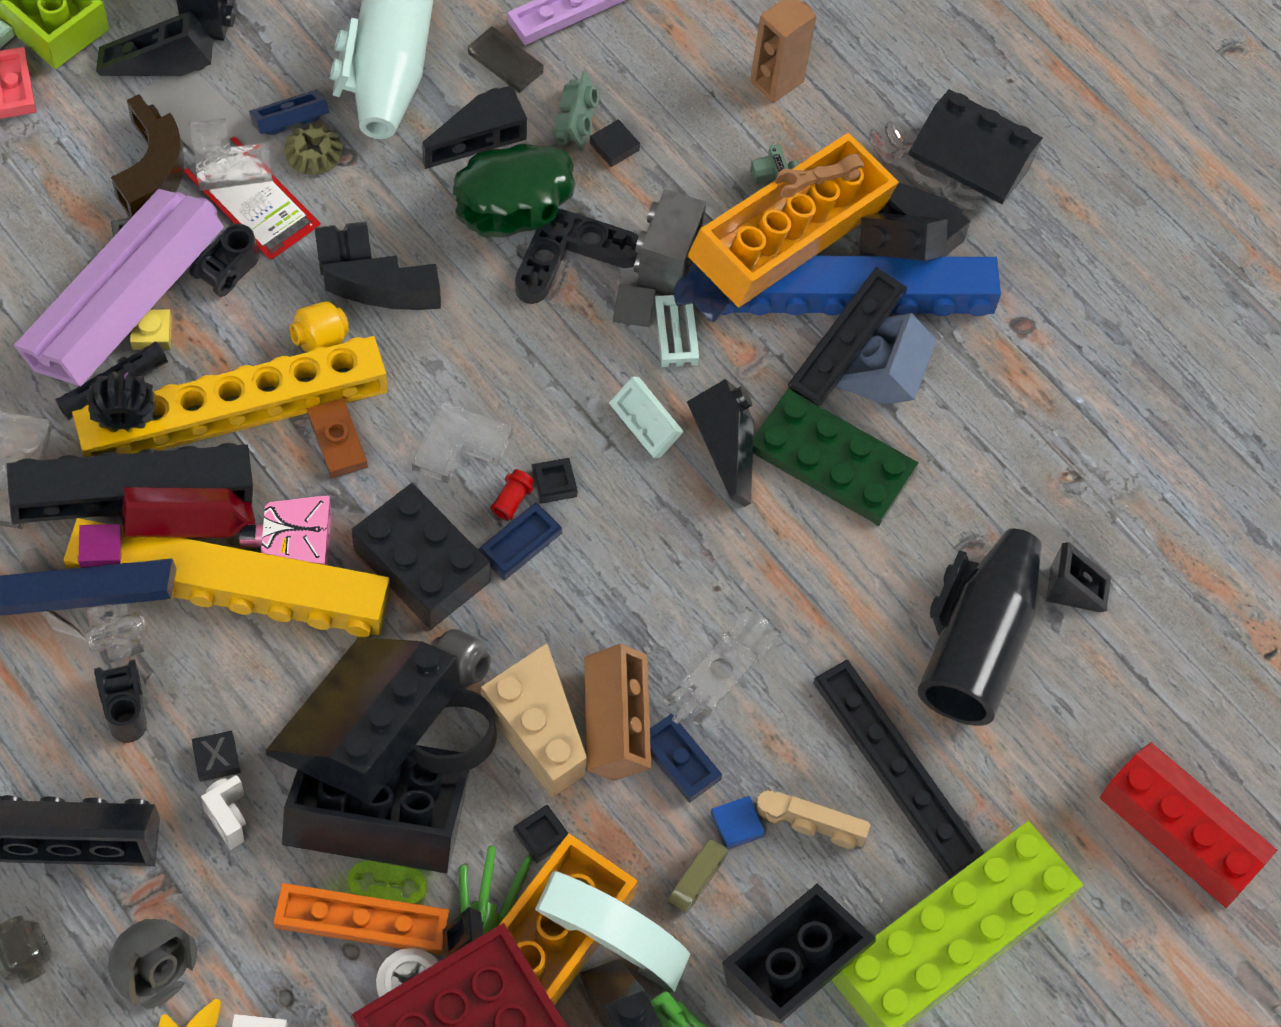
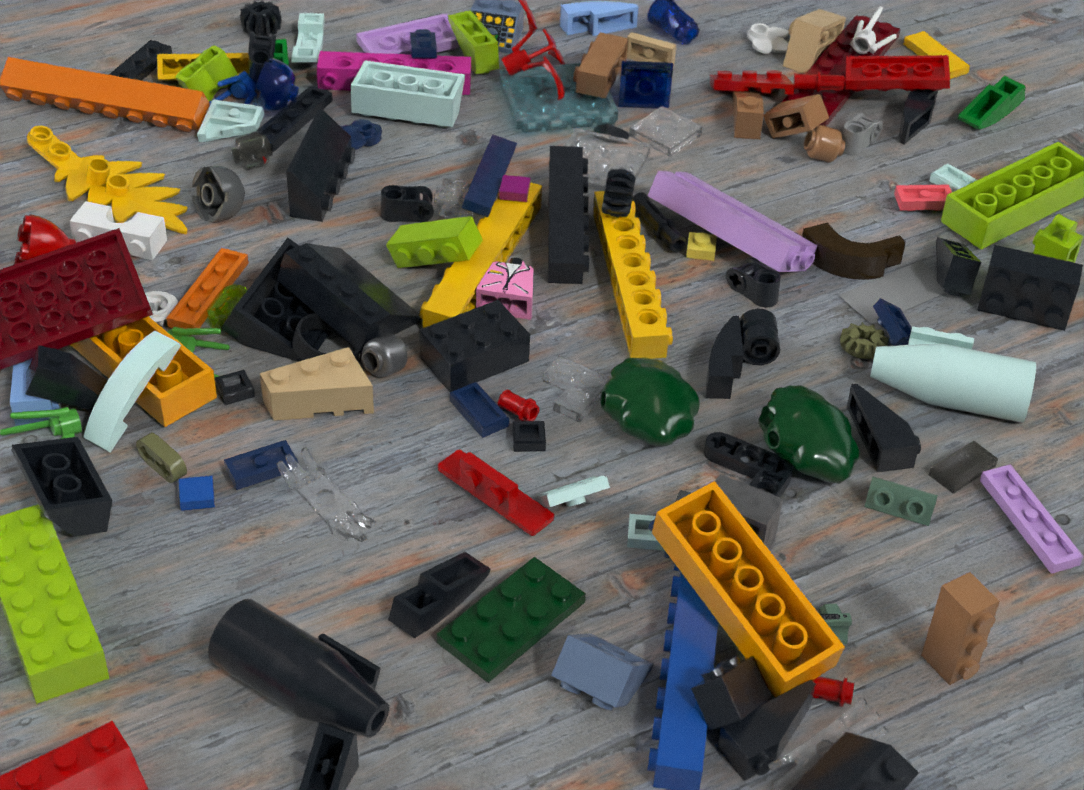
camera: 105 degrees right, 20 degrees down
(183, 512) = (532, 224): dark red piece -> none
(215, 756) = (355, 243): black tile -> none
(222, 811) = (309, 232): white bracket -> none
(225, 166) = (847, 285): clear plate -> none
(238, 630) = (434, 242): none -> lime brick
(266, 208) = (820, 307): sticker -> none
(318, 326) = (687, 318): yellow head -> none
(337, 438) = (591, 324): dark orange plate -> none
(462, 930) = (165, 316): black tile -> none
(489, 350) = (650, 401): none -> dark green piece
(614, 143) = (868, 523): black tile -> none
(617, 712) = (307, 425): medium nougat brick -> none
(658, 500) = (496, 491): none -> red bracket
(728, 434) = (534, 535): black slope -> none
(801, 179) = (790, 621): medium nougat piece -> none
(812, 818) = (176, 532): tan hinge -> none
(826, 526) = (437, 594): none -> black slope
(847, 337) = (628, 635): black tile -> none
(898, 768) = (199, 603): black tile -> none

